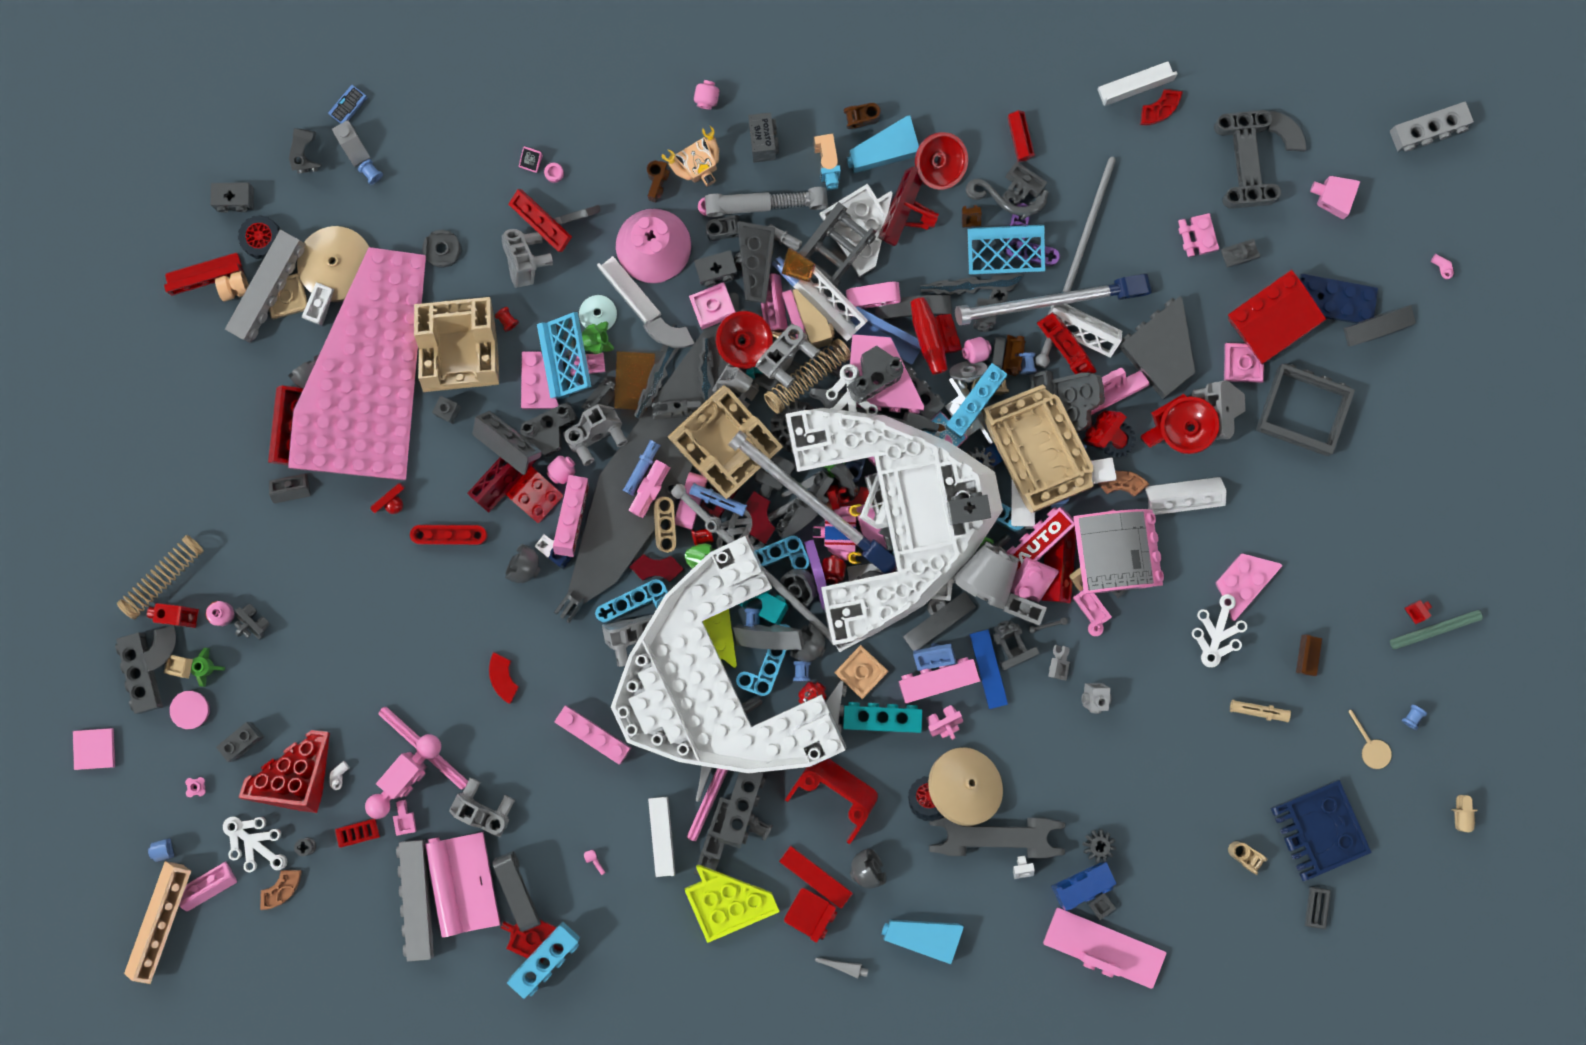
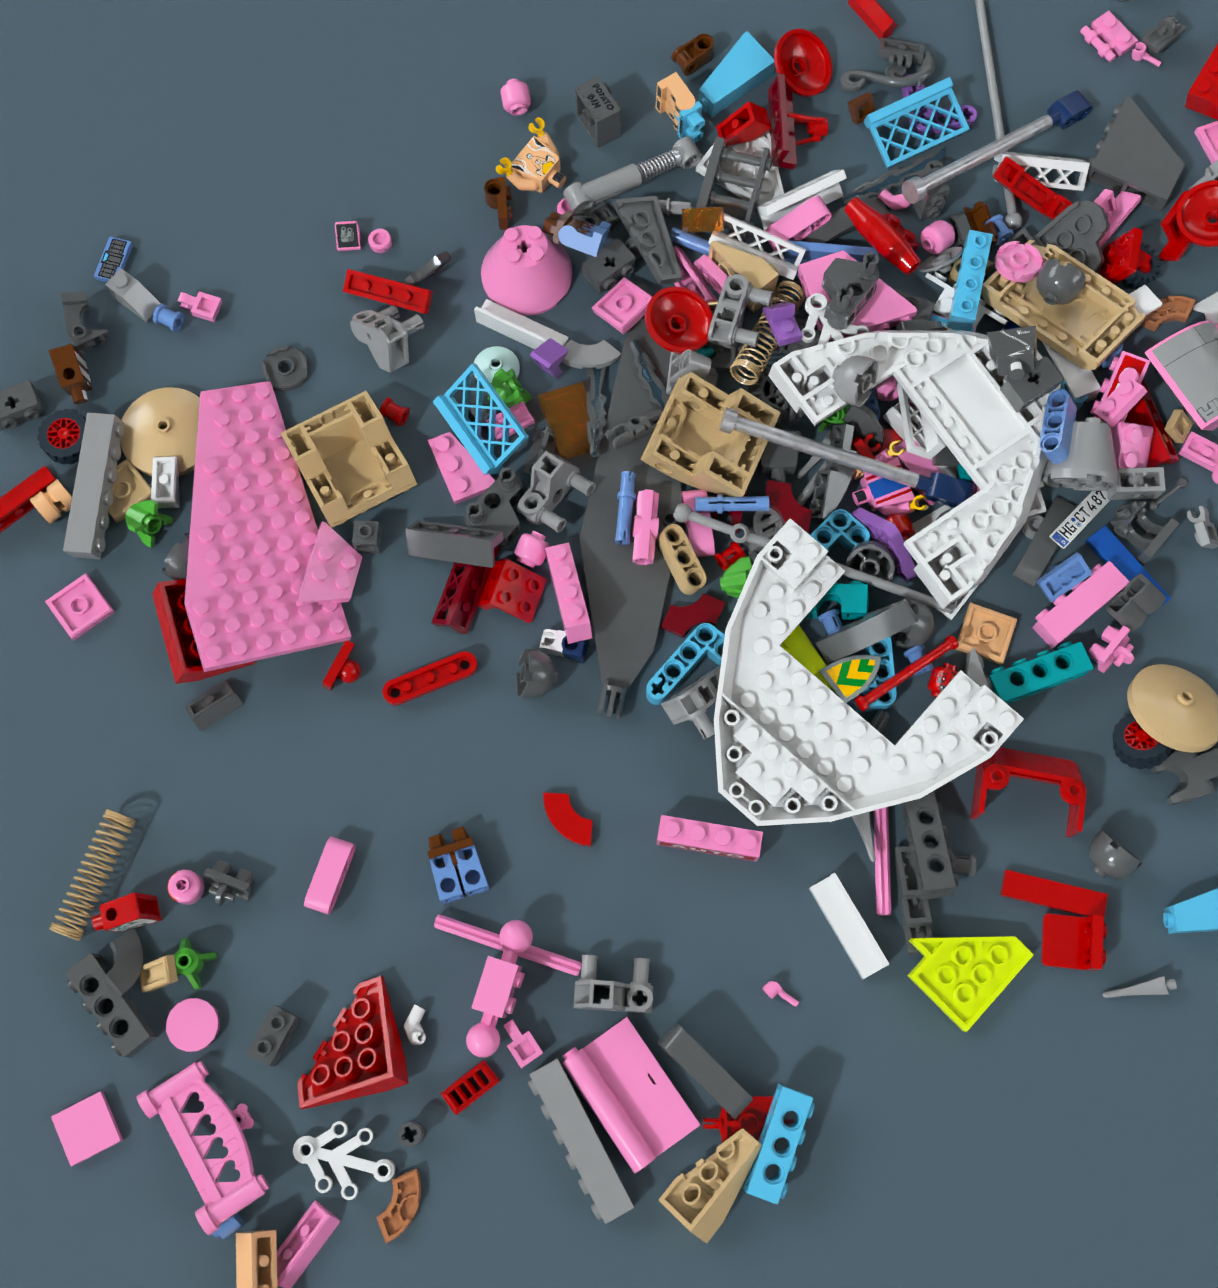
camera: 25 degrees left, 10 degrees down
(154, 755) = (220, 1198): none -> bright pink piece
(222, 373) = (79, 606): none -> bright pink tile
(279, 183) = (71, 372): none -> reddish brown torso
(292, 329) = (146, 521): none -> bright green brick
(321, 647) = (329, 875): none -> bright pink beam
(399, 172) = (202, 306): none -> bright pink plate
(409, 424) = (330, 569): none -> bright pink wing
(409, 679) = (455, 857): none -> medium blue hips
(482, 971) = (708, 1191): none -> tan wedge
(636, 327) = (549, 356): none -> medium lavender slope
(697, 237) = (576, 232): none -> hips
(745, 663) = (851, 675): none -> sticker
(785, 678) = (949, 643): none -> red bar
(817, 377) = (783, 323): none -> medium lavender slope
(836, 454) = (854, 378): none -> light grey cylinder
(869, 197) = (744, 124): none -> red slope
(904, 273) = (825, 186): none -> white panel
(955, 301) = (894, 202): none -> bright pink arm
(964, 482) = (1013, 351): none -> dark grey torso
(968, 618) = (1079, 518): none -> white sticker
(976, 698) = (1135, 602): none -> dark grey brick
(979, 540) = (1058, 426): none -> medium blue beam
(1021, 401) = (1018, 261): none -> bright pink tile
(1038, 544) = (1121, 399): none -> bright pink hinge
(1039, 434) = (1059, 283): none -> dark grey cylinder
(1218, 262) = (1139, 54): none -> bright pink hand

